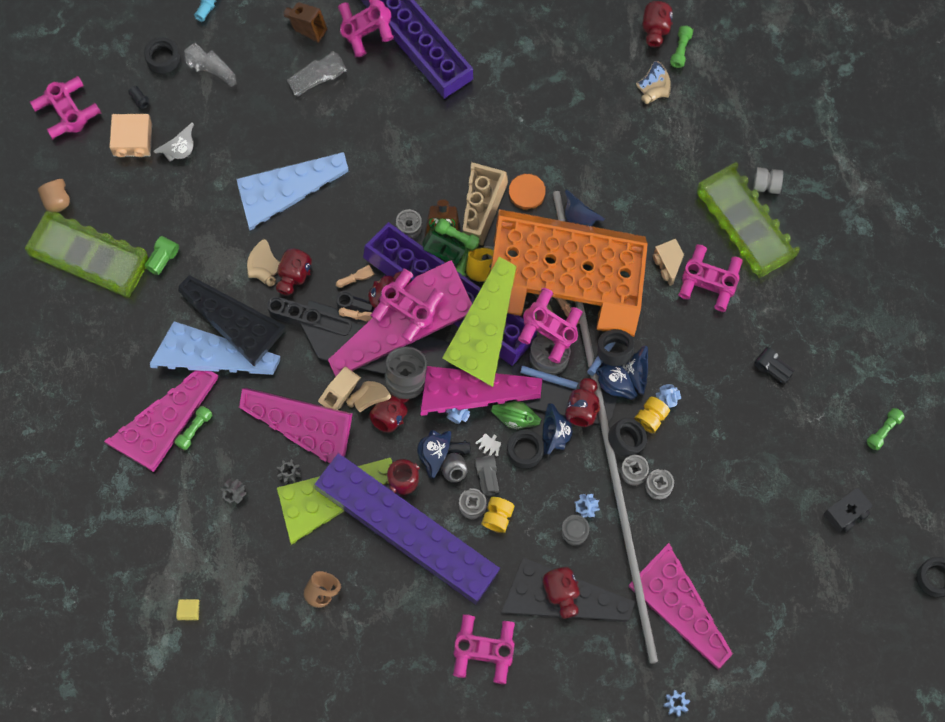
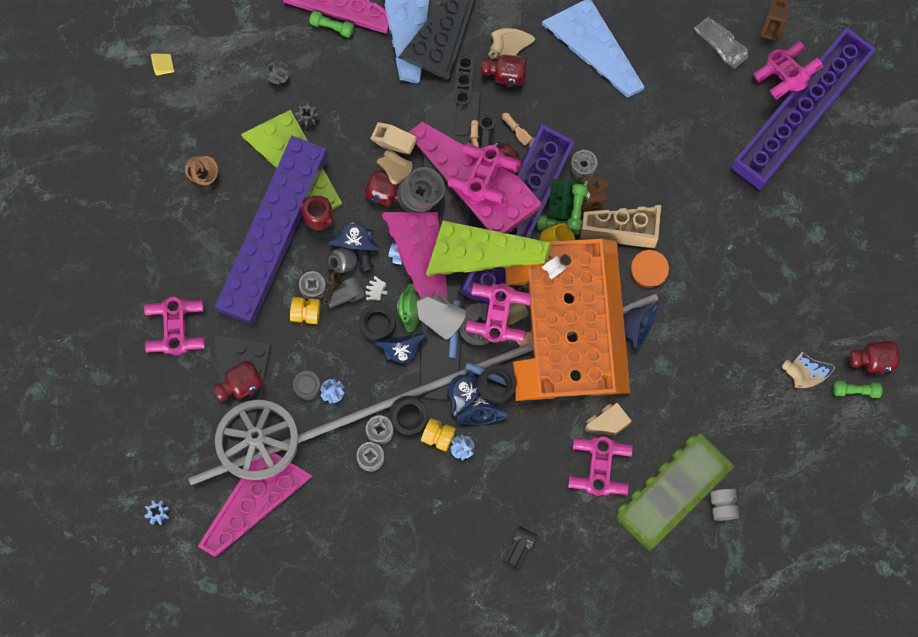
camera: 75 degrees right, 5 degrees up
(308, 425) = (356, 117): dark pink wing -> none
(473, 481) = (332, 281): none -> dark brown plate
(522, 261) = (554, 267): none -> white wheel
(538, 380) = (440, 315): none -> light grey panel
(583, 404) = (430, 365): dark red piece -> none
(626, 590) = (256, 443): none -> light grey wheel

